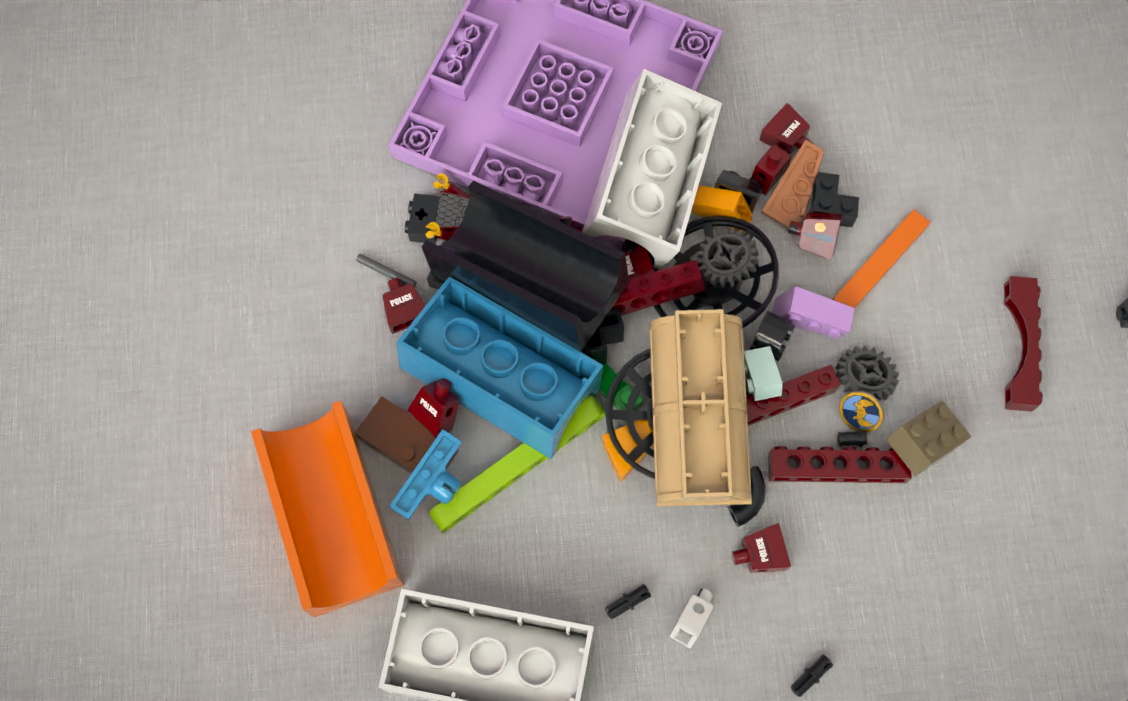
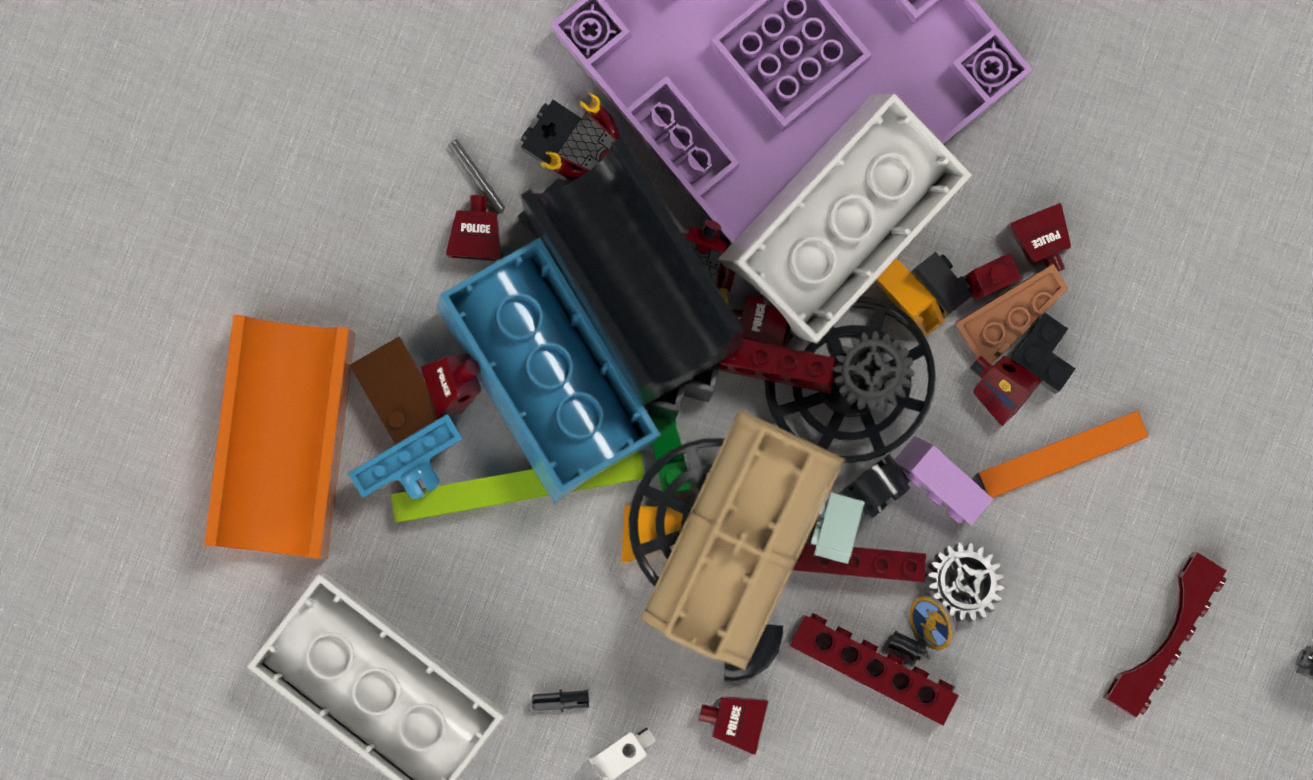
camera: 25 degrees right, 15 degrees up
(928, 438) = (987, 692): dark tan brick -> none

